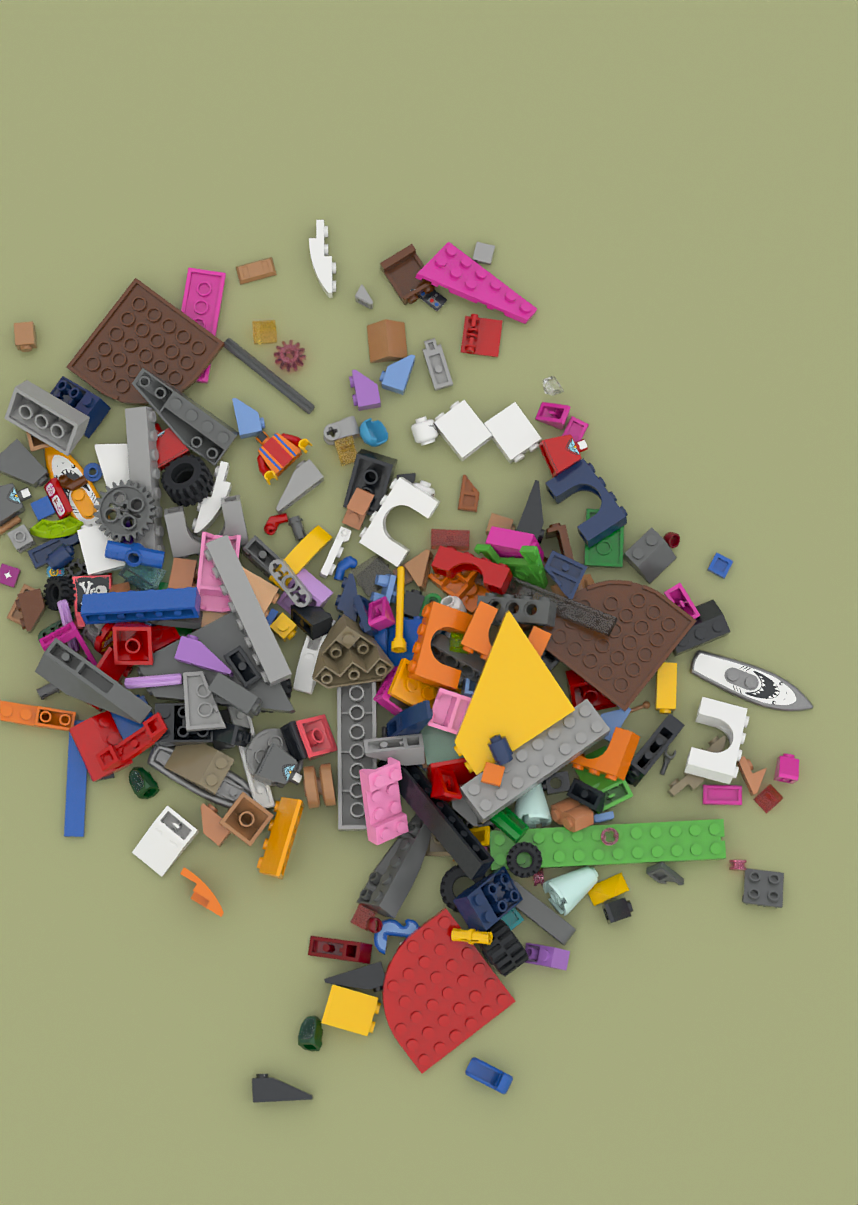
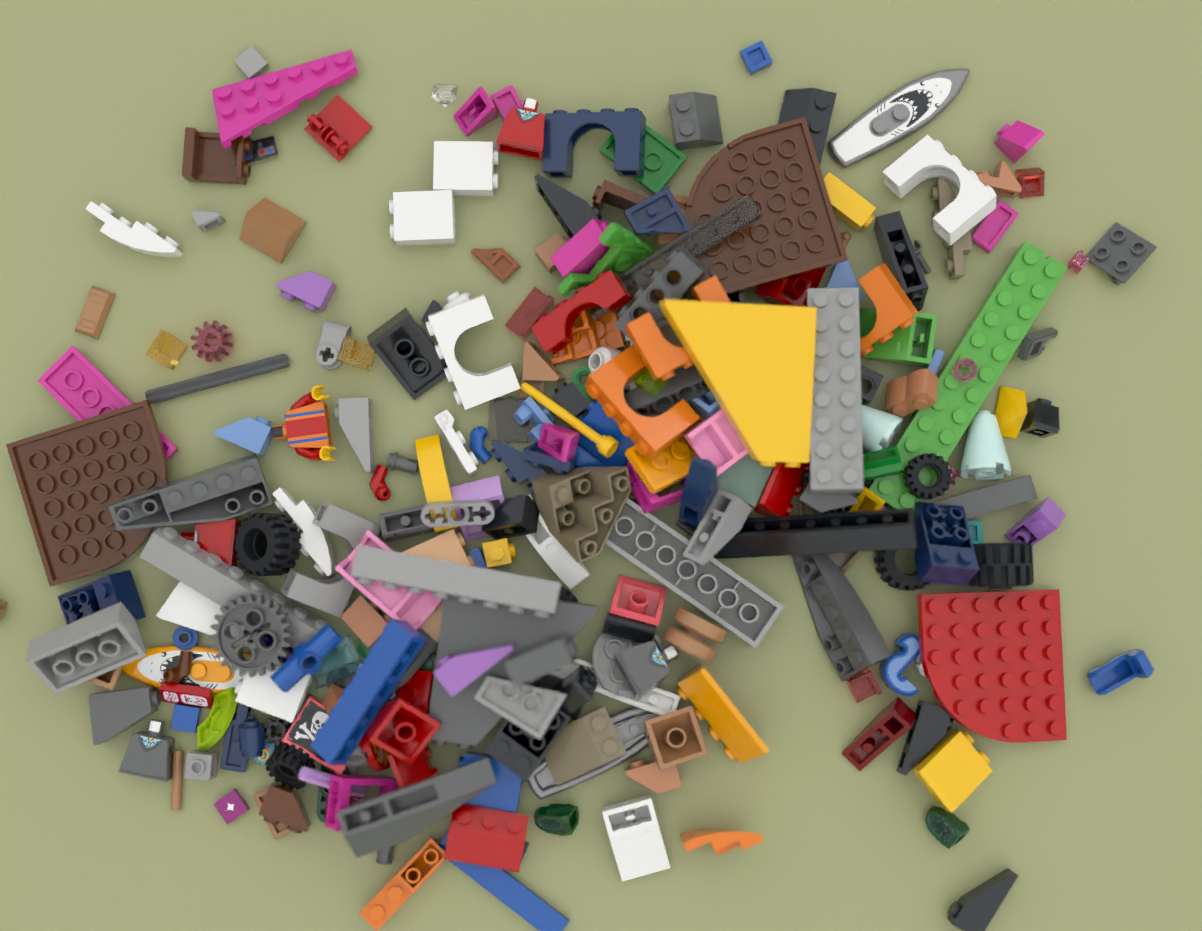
camera: 50 degrees left, 5 degrees up
(133, 745) = (513, 806): red slope -> none
(153, 681) = (459, 735): lavender axle -> none
(242, 667) = (514, 629): black slope -> none
(358, 508) = (428, 385): nougat slope -> none
(371, 925) = (882, 685): dark red hinge -> none
(373, 433) = (359, 312): dark azure hair -> none
(383, 802) = (763, 582): bright pink piece -> none
(397, 375) = (315, 243): medium blue slope -> none
(424, 431) = (396, 257): white head -> none
(437, 365) = (335, 195): light grey hinge -> none
(445, 785) = (794, 502): red slope -> none
(471, 936) = (973, 589): yellow pin -> none
(492, 774) = (823, 444): orange tile -> none
(500, 749) = (803, 417): dark blue brick -> none
(587, 795) = (904, 362): black slope -> none
(672, 539) = (694, 84): dark red hinge -> none
(680, 597) = (763, 118): dark pink slope -> none

